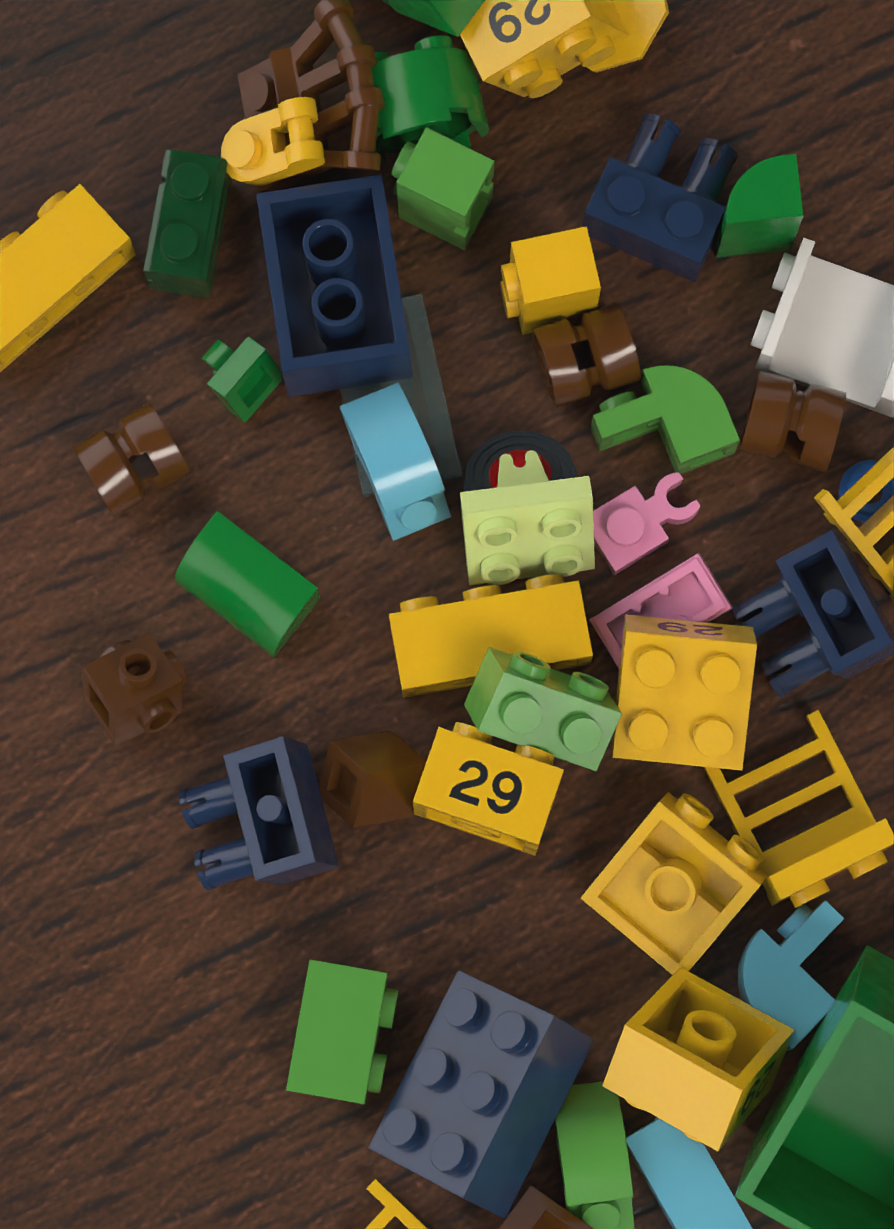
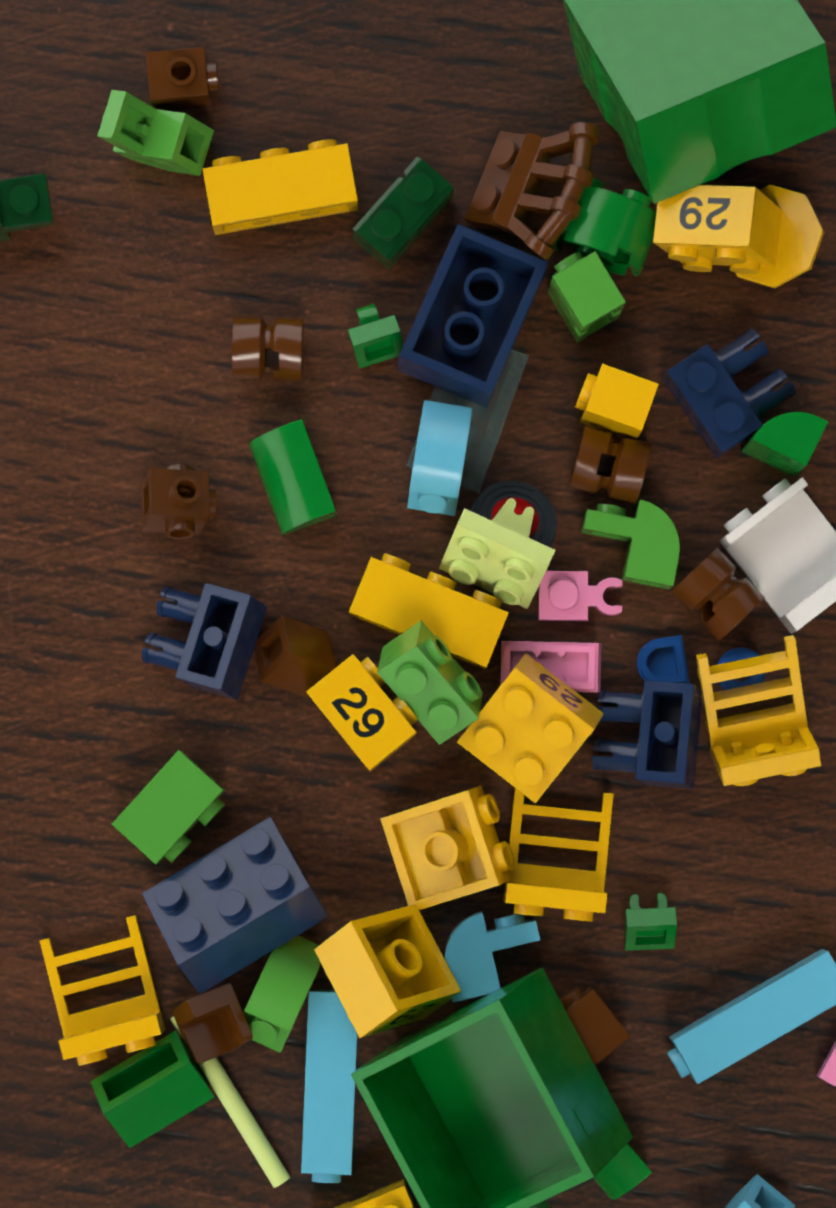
camera: 25 degrees right, 5 degrees up
(258, 146) = (478, 193): yellow plate -> none
(777, 532) = (663, 661): none -> blue tile

